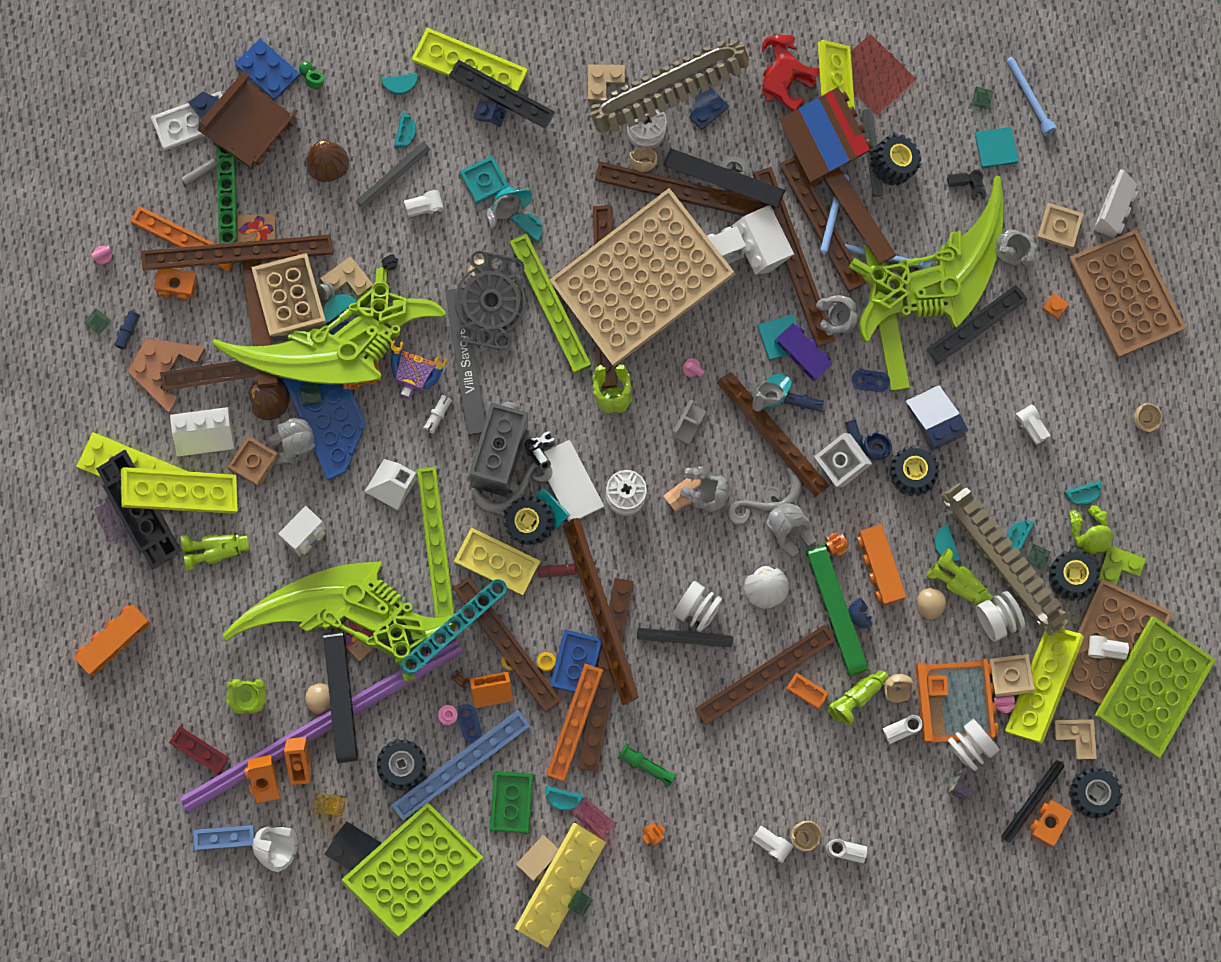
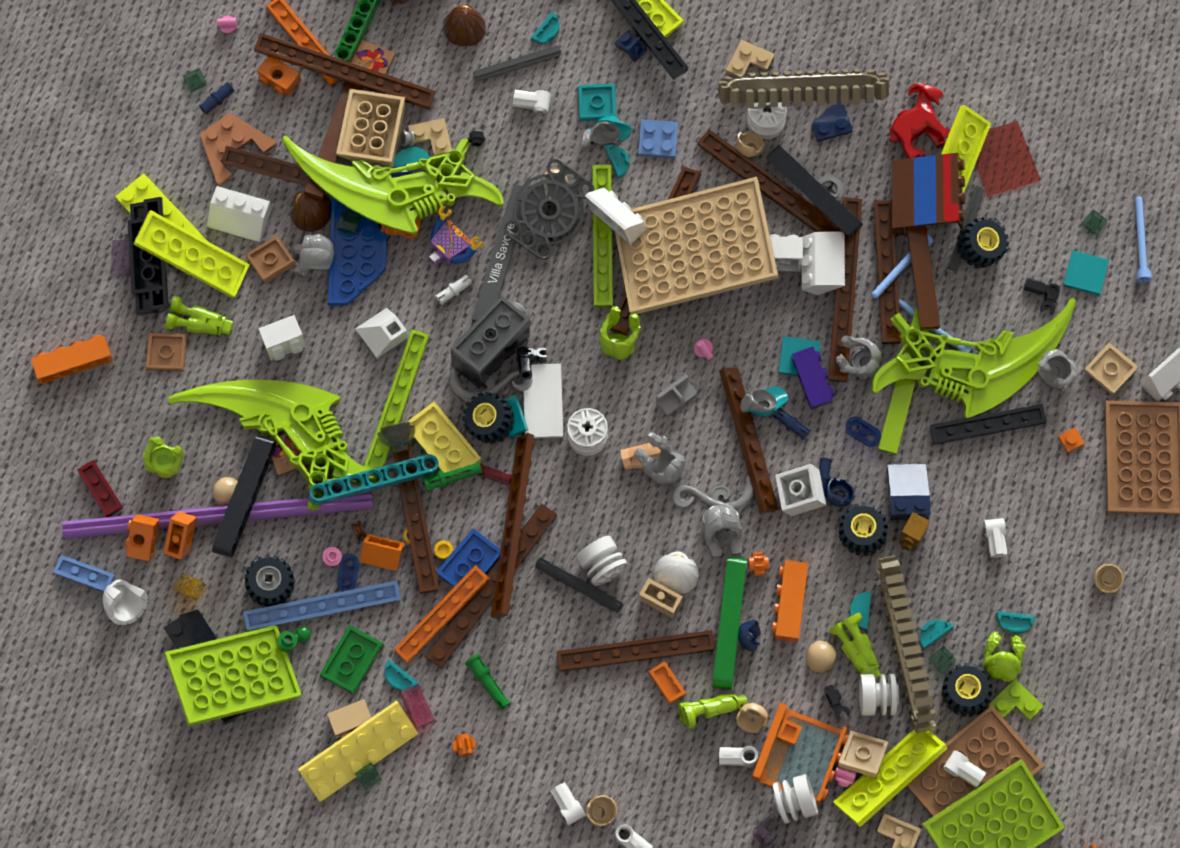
camera: 30 degrees right, 5 degrees down
(197, 592) = (166, 351): none -> medium nougat tile
(455, 575) = (397, 436): none -> clear smoke piece
(455, 800) = (302, 634): none -> green plate
(513, 595) = (441, 476): none -> green pin
(556, 190) = (658, 138): none -> medium blue plate
(556, 278) = (616, 214): none -> white slope
(765, 616) = (660, 598): none -> tan brick
(961, 453) = (913, 532): none -> pearl gold brick
(961, 636) = (834, 697): none -> black plate

